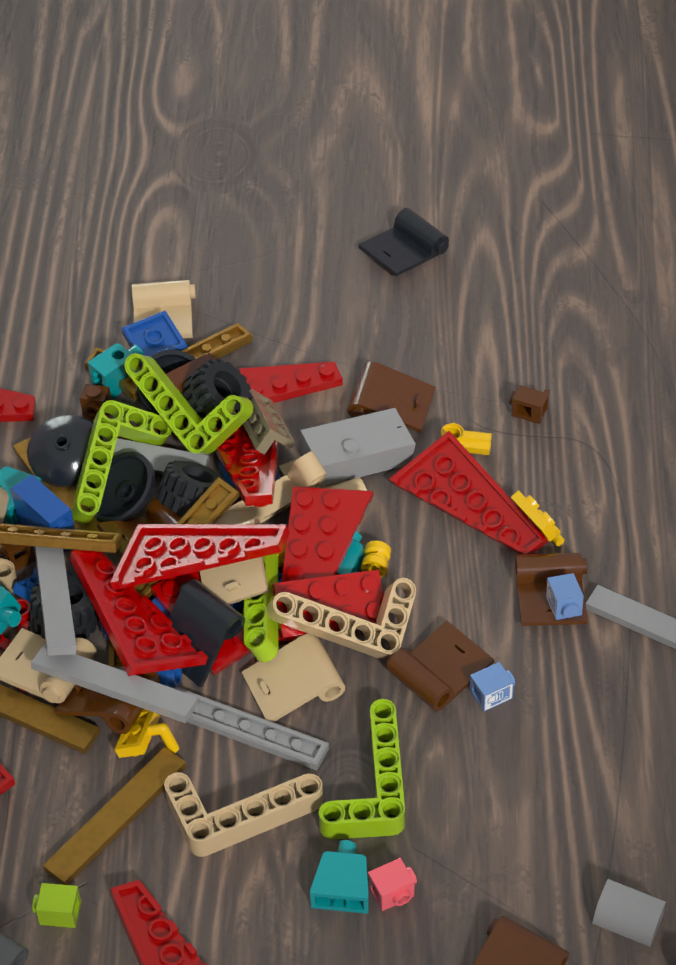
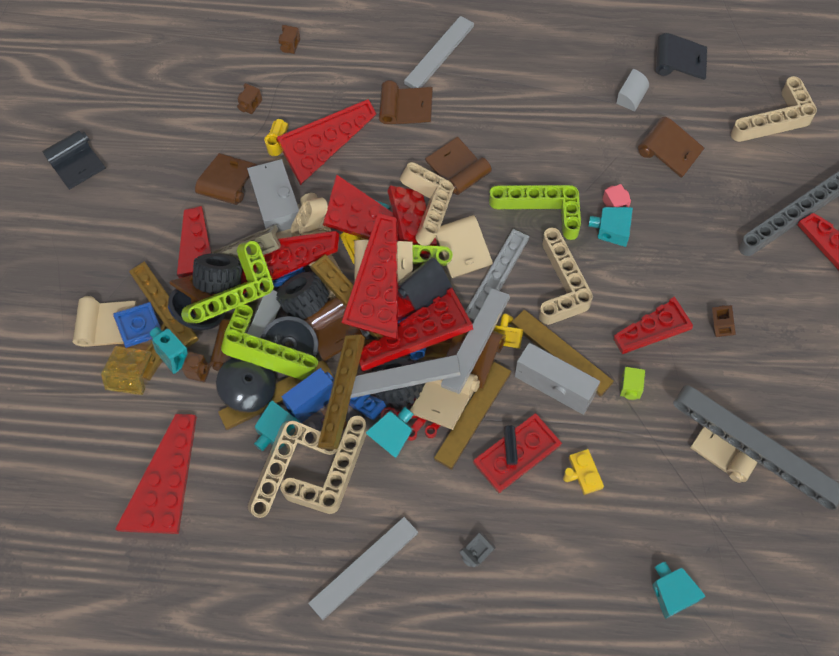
camera: 85 degrees left, 15 degrees up
(59, 796) = (556, 378): none -> light grey brick
(92, 336) = (125, 370): none -> clear yellow bracket
(376, 557) = (373, 192): yellow wheel -> none
(492, 686) = (478, 139): medium blue brick -> none
(538, 517) = (359, 96): yellow plate -> none
(564, 596) = (418, 92): medium blue brick -> none
(650, 436) = (289, 39): none -> reddish brown brick

